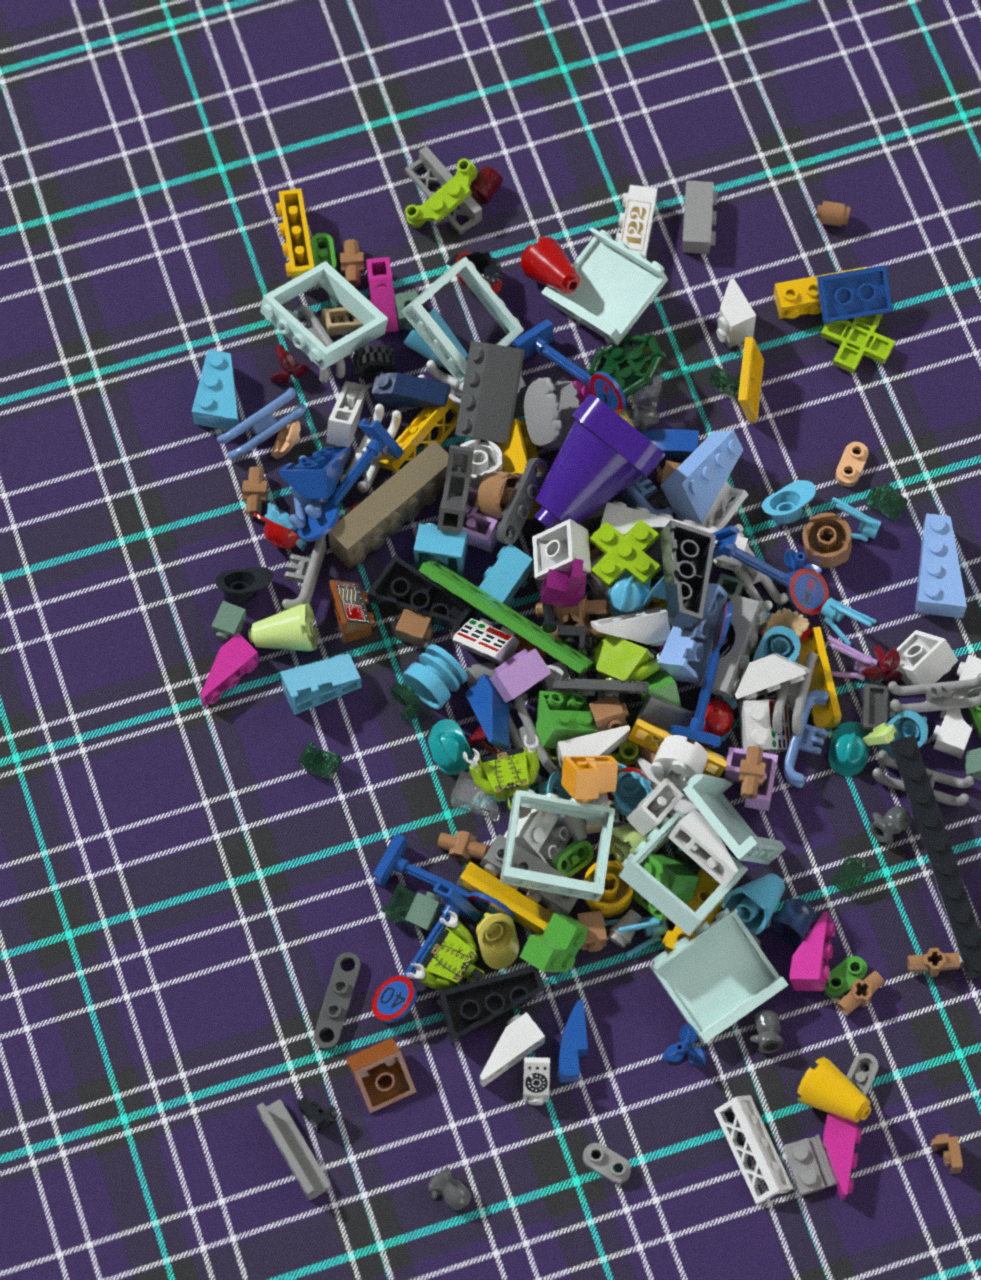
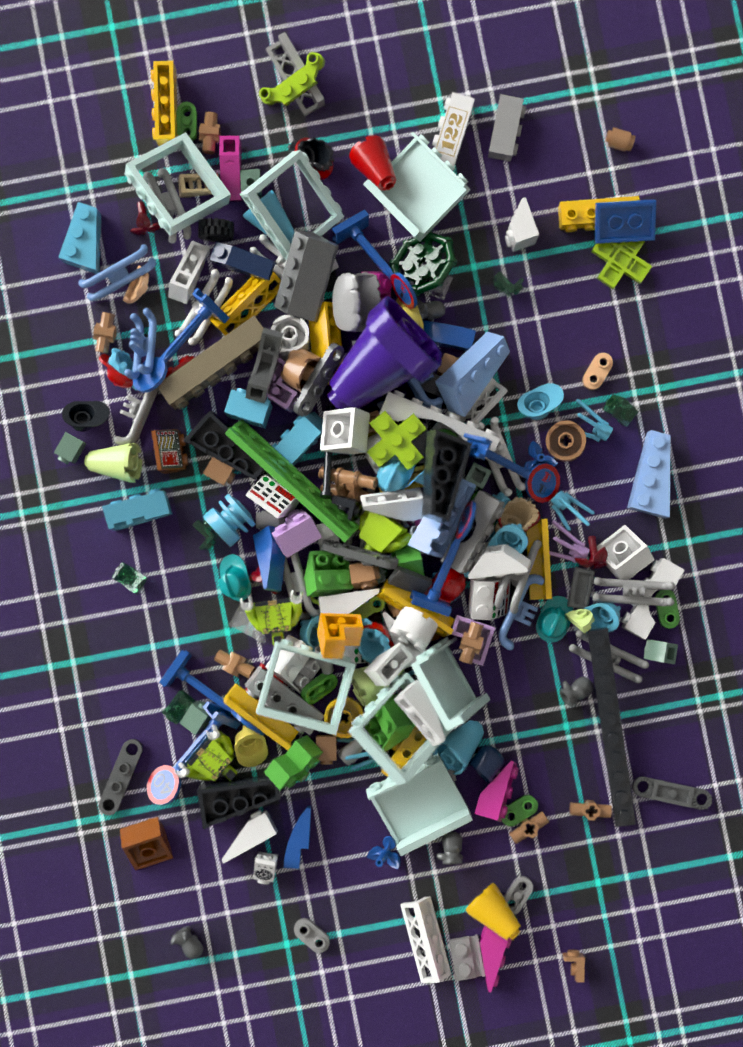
camera: 10 degrees right, 20 degrees up
(231, 663) = (67, 483): dark pink slope -> none
(294, 1149) = (71, 893): light grey fence -> none
(312, 1111) = (90, 866): black bracket -> none
(317, 475) = (154, 331): blue wedge -> none
(485, 184) = (330, 74): dark red piece -> none
(562, 588) = (342, 464): magenta brick -> none
(751, 379) = (526, 288): yellow tile -> none
(851, 875) = (538, 728): clear green bracket -> none

